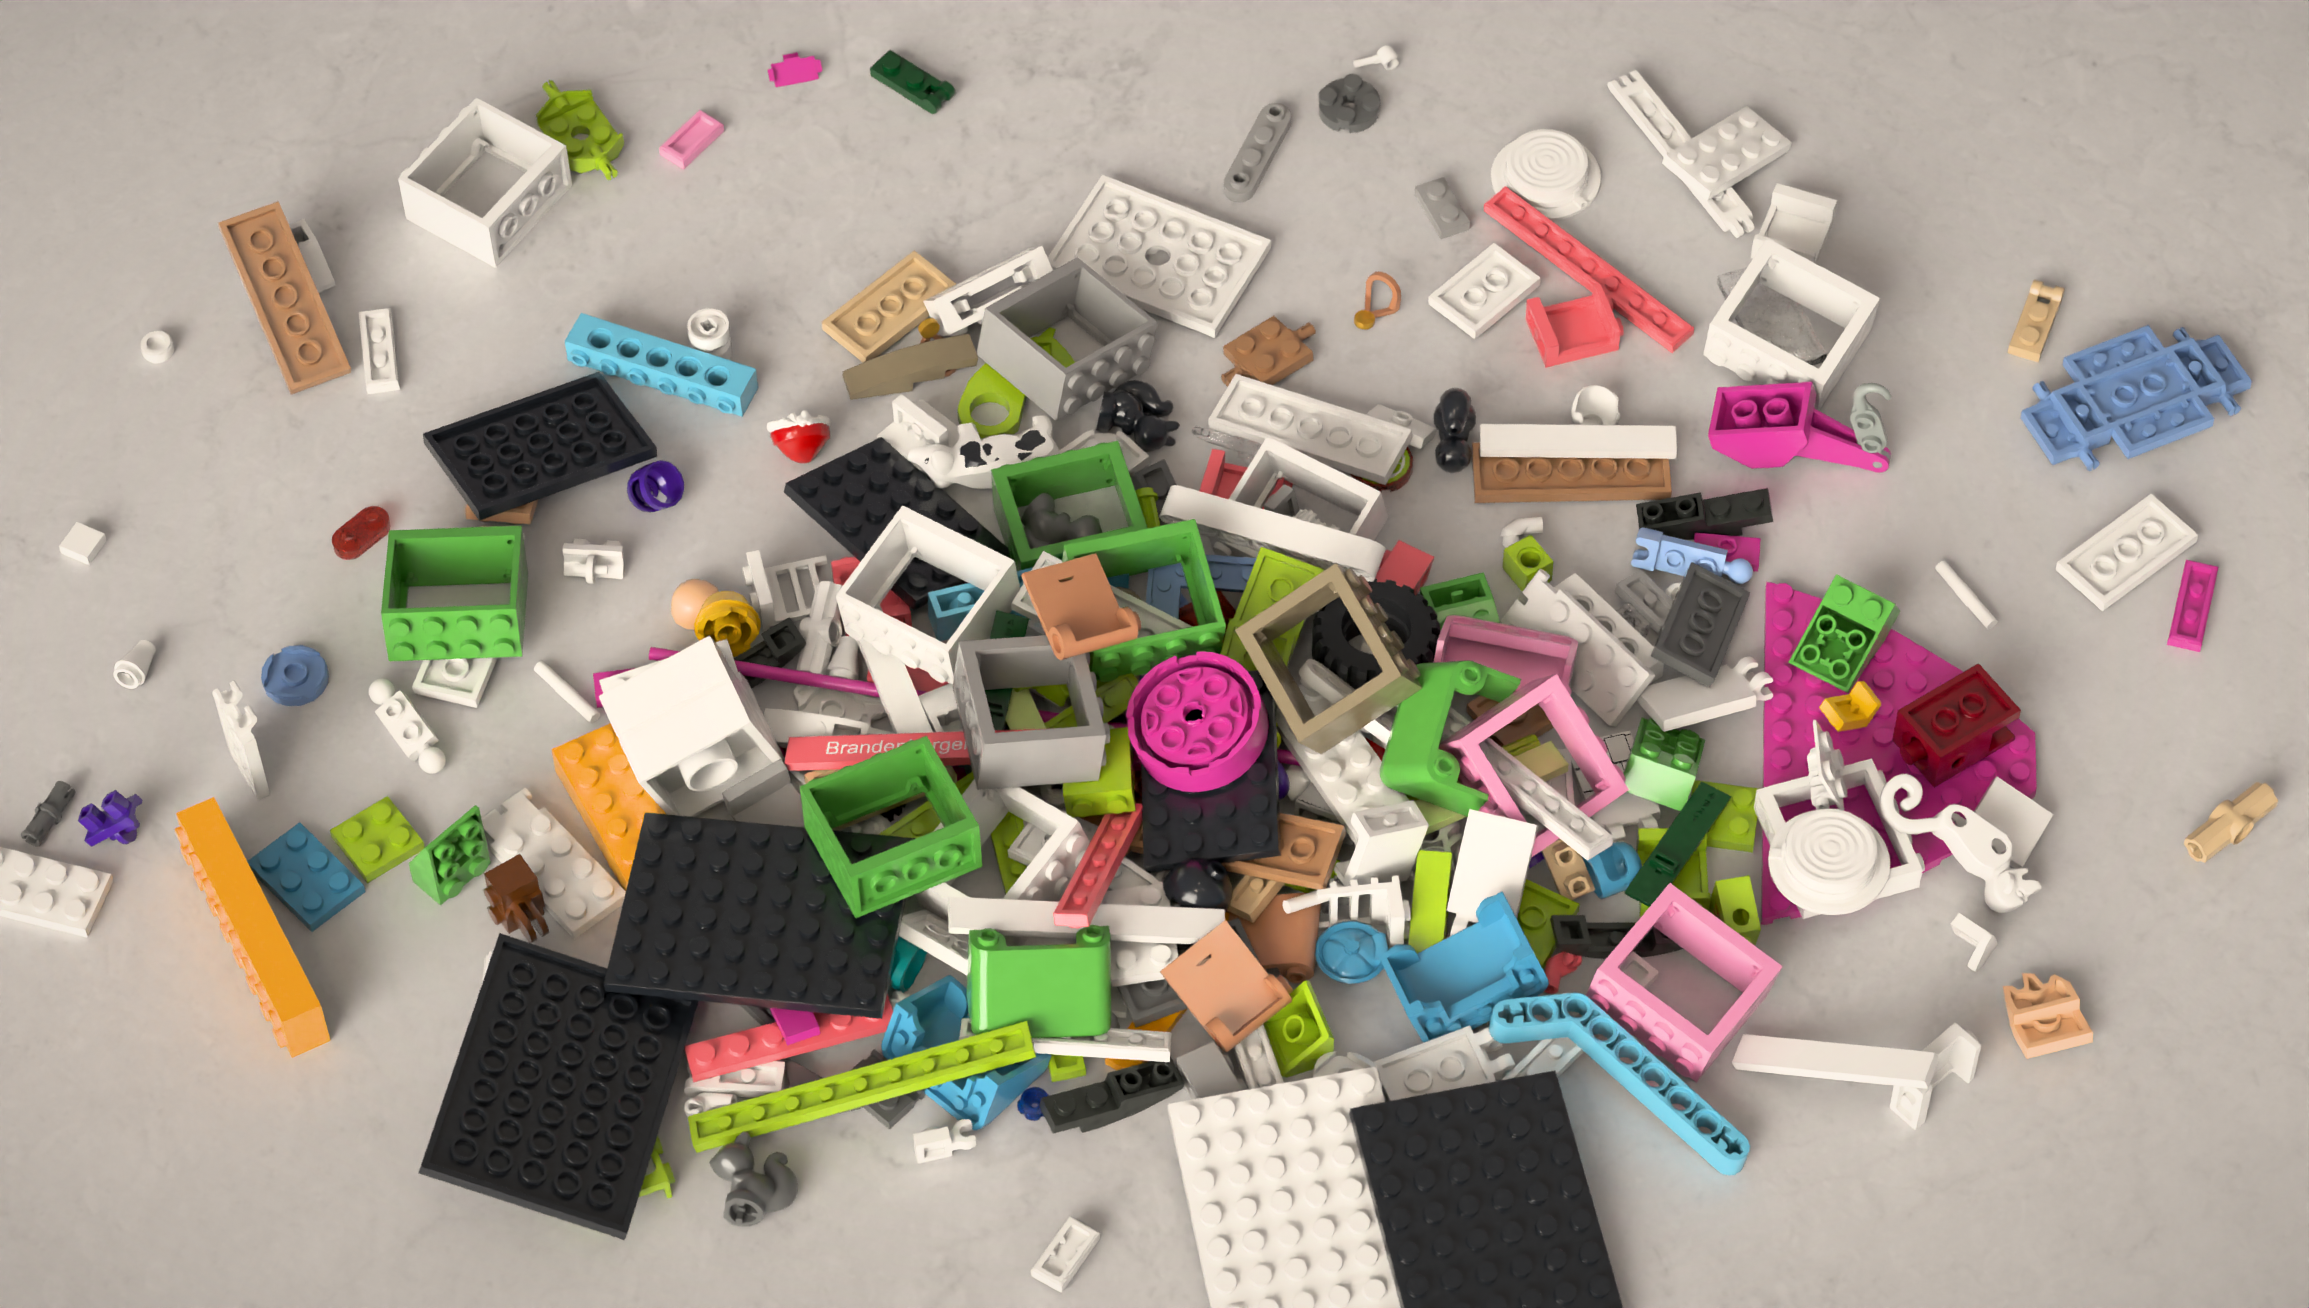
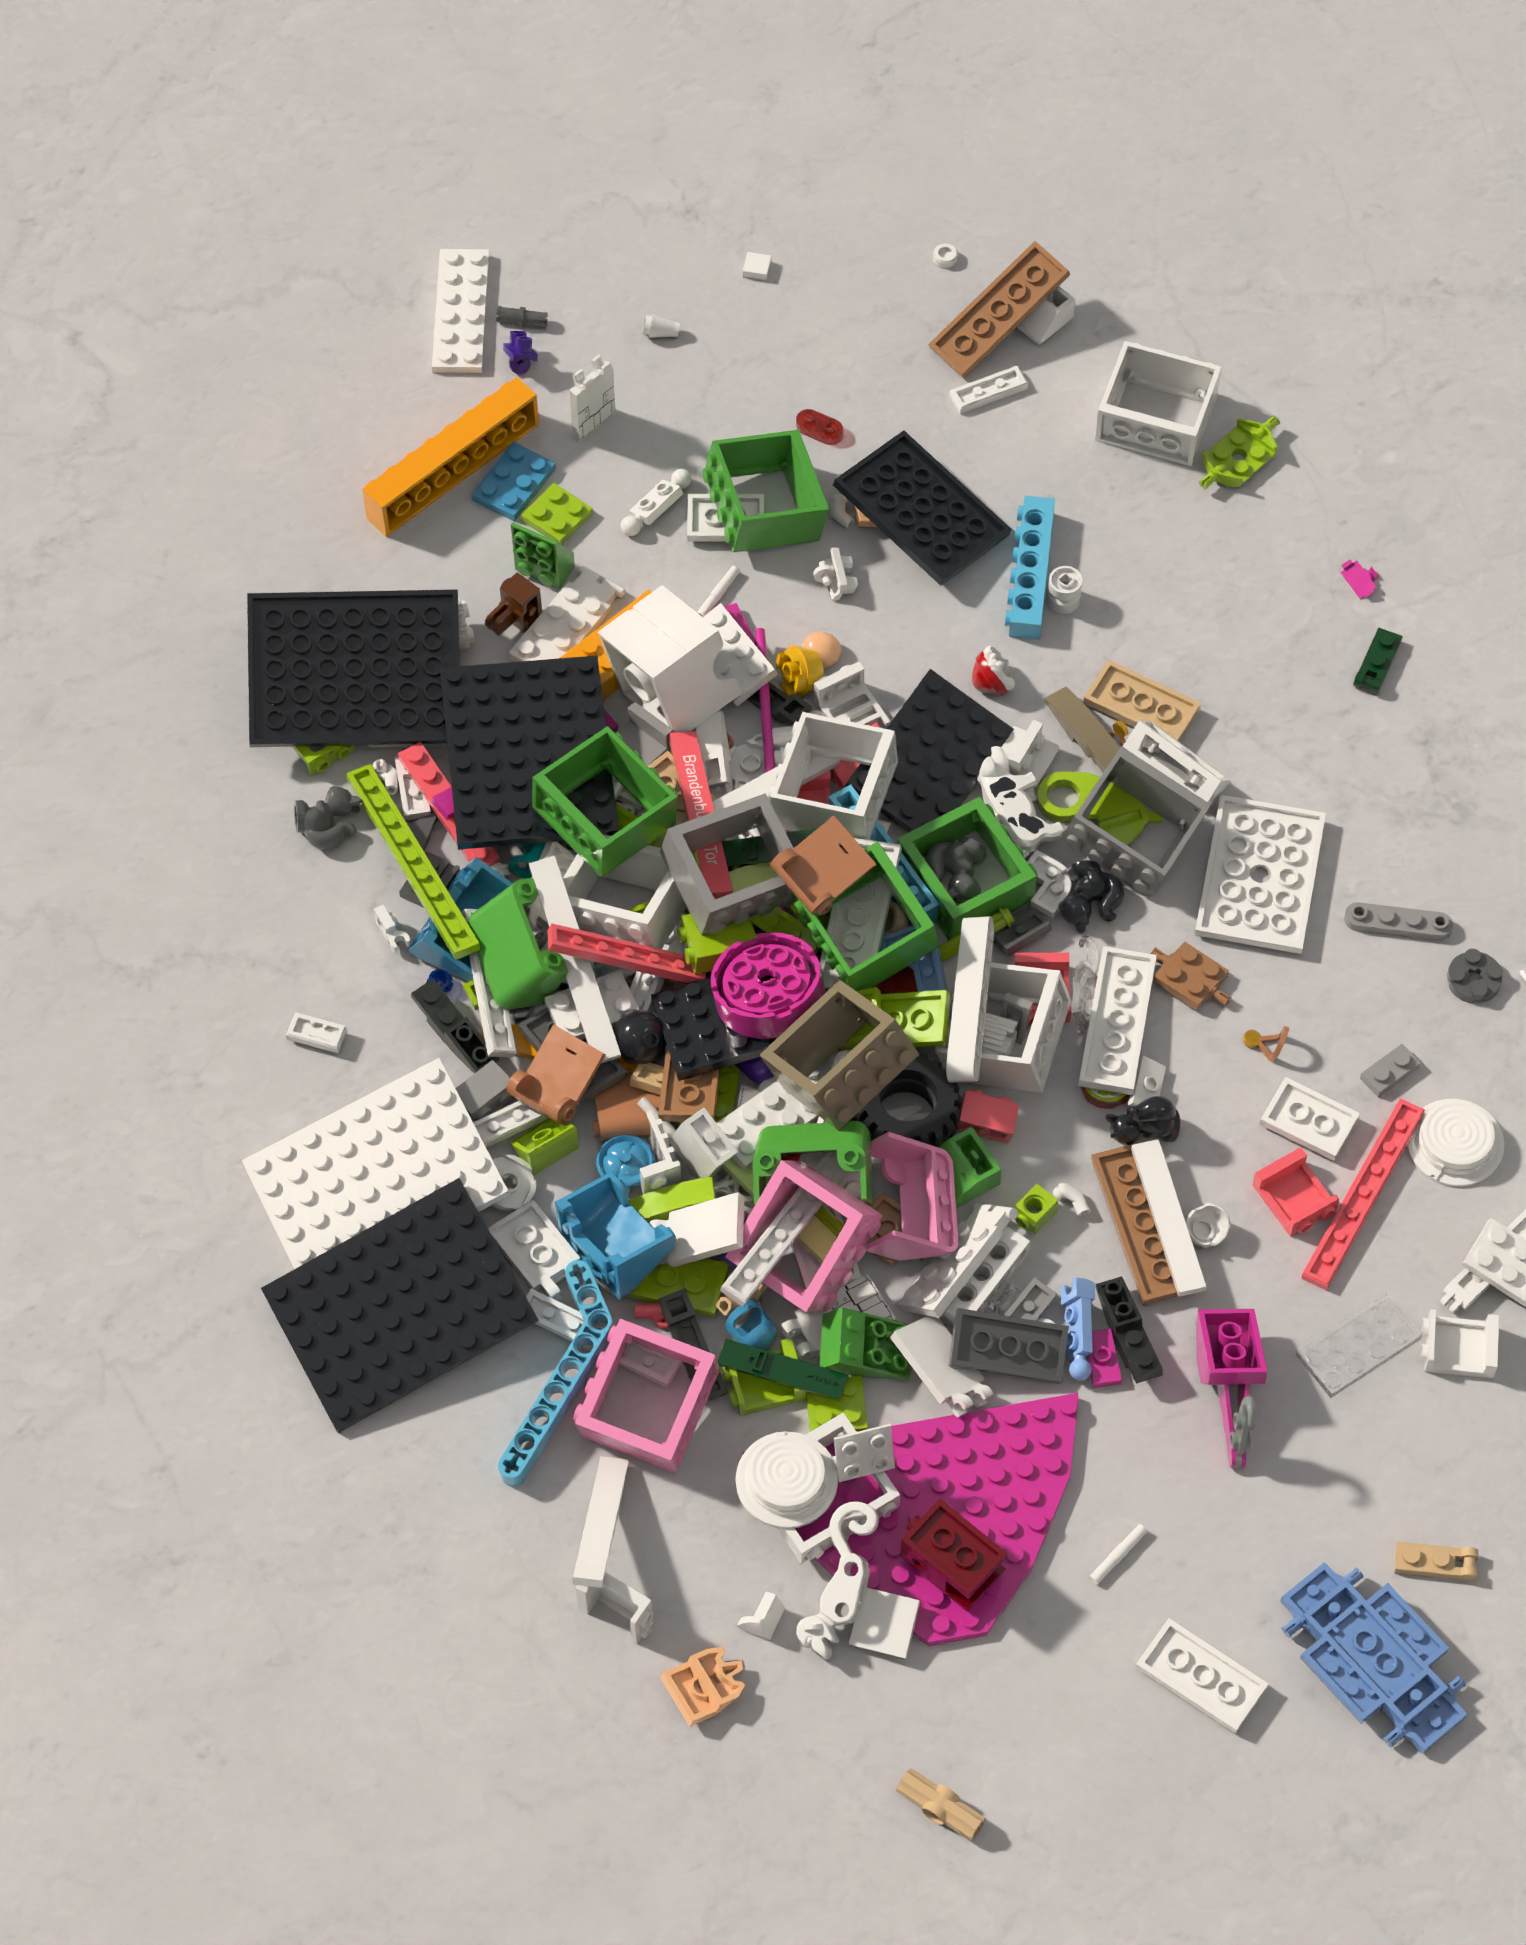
camera: 75 degrees right, 5 degrees up
(295, 676) = (682, 424): medium blue tile -> none
(658, 476) = (911, 585): dark purple helmet -> none
(691, 139) = (1263, 529): bright pink tile -> none
(1735, 906) = (727, 1429): lime torso -> none
(1808, 285) = (1324, 1398): white window -> none
(1844, 633) = (1032, 1457): bright green slope -> none
(1853, 709) = (953, 1474): yellow bracket -> none
(2192, 605) = (1165, 1741): dark pink tile -> none

